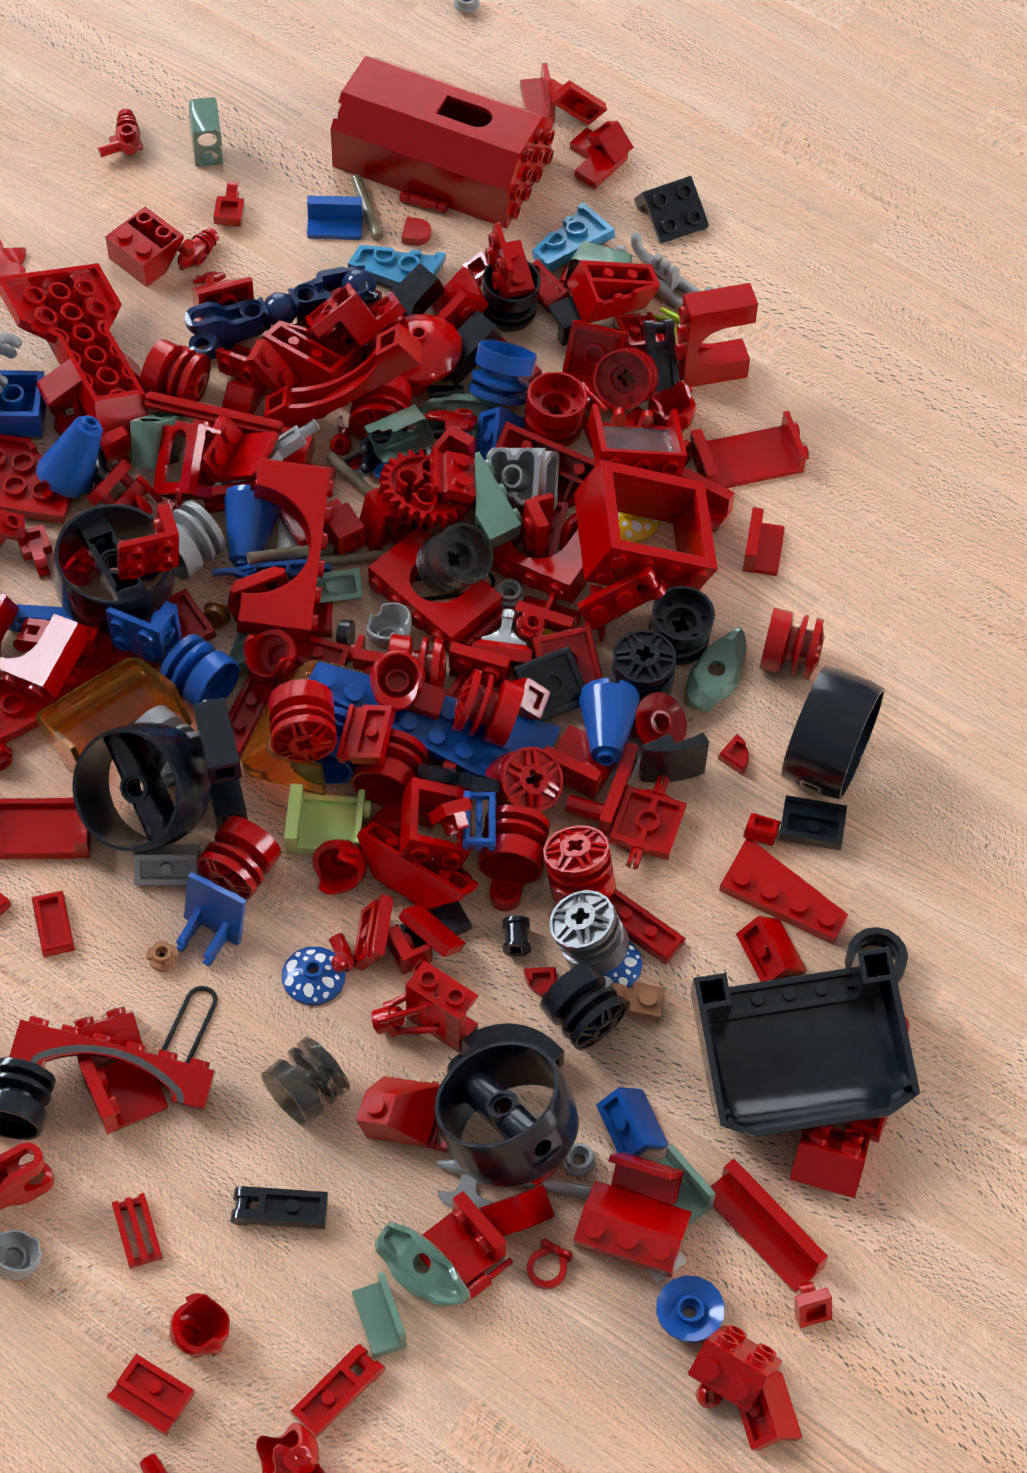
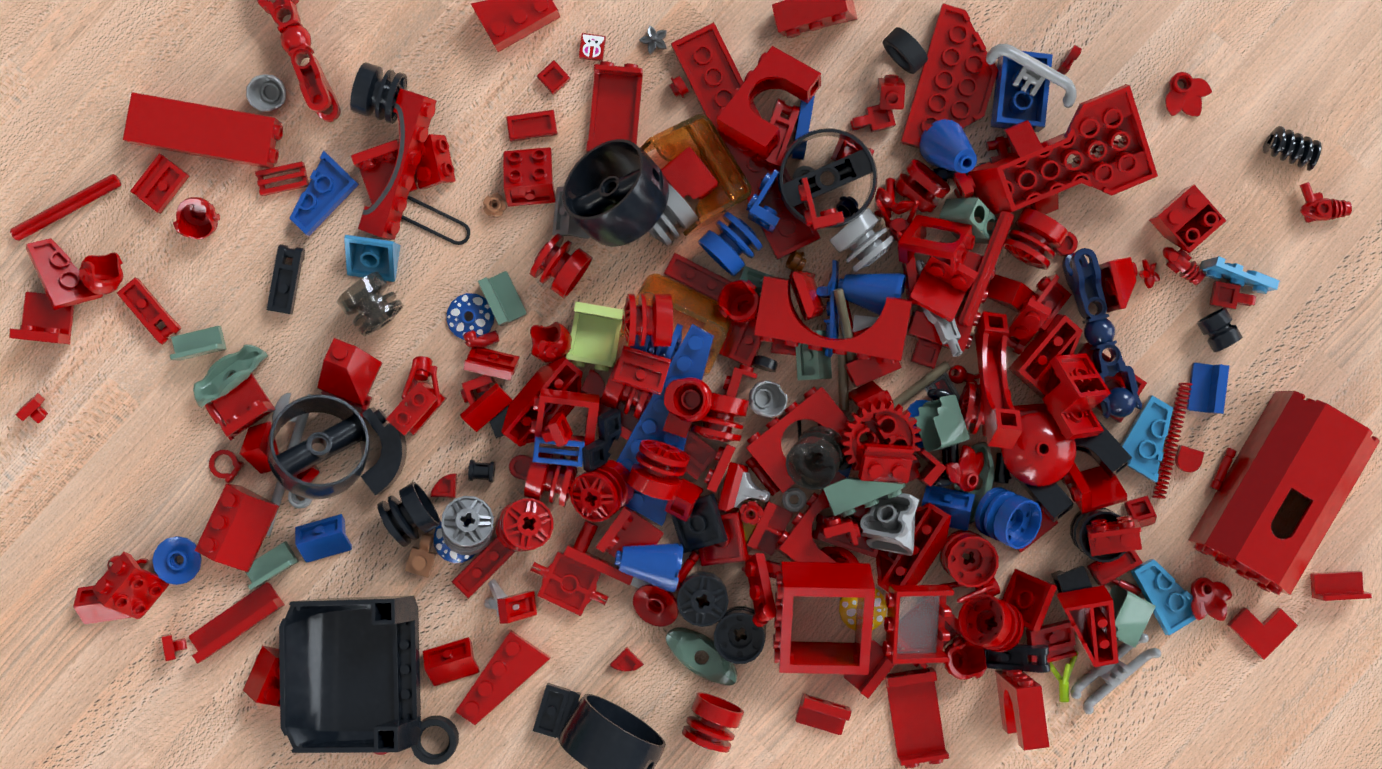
camera: 95 degrees right, 30 degrees up
(60, 162) = (1294, 146): none -> black piece
(71, 1340) = (202, 130): none -> red brick
(115, 711) = (689, 175): none -> red piece
(121, 913) = (528, 177): none -> red bracket
(156, 1169) = (325, 192): none -> blue wing
(203, 120) = (1315, 279): sand green piece -> none
(205, 197) = (1234, 272): none -> dark azure wing
(214, 908) = (527, 237): blue plate -> none
(221, 759) = (630, 254): black arch -> none
(240, 1097) = (371, 256): none -> dark azure slope
(268, 210) = (1219, 329): none -> black wheel
(286, 936) = (502, 298): none -> sand green panel
(368, 211) = (1220, 418): dark tan bar -> none
(401, 249) = (1163, 469): none -> red piece
(568, 201) = (1211, 601): none -> red plate
(576, 101) = (1324, 617): red panel -> none
(612, 139) = (1275, 645): red panel -> none
(646, 1177) = (275, 543): red panel -> none
(673, 759) = (615, 605): black slope -> none
(674, 209) = (1192, 691): black bracket -> none
(687, 878) = (511, 607): none -> red piece
(762, 829) = (554, 671): red tile -> none

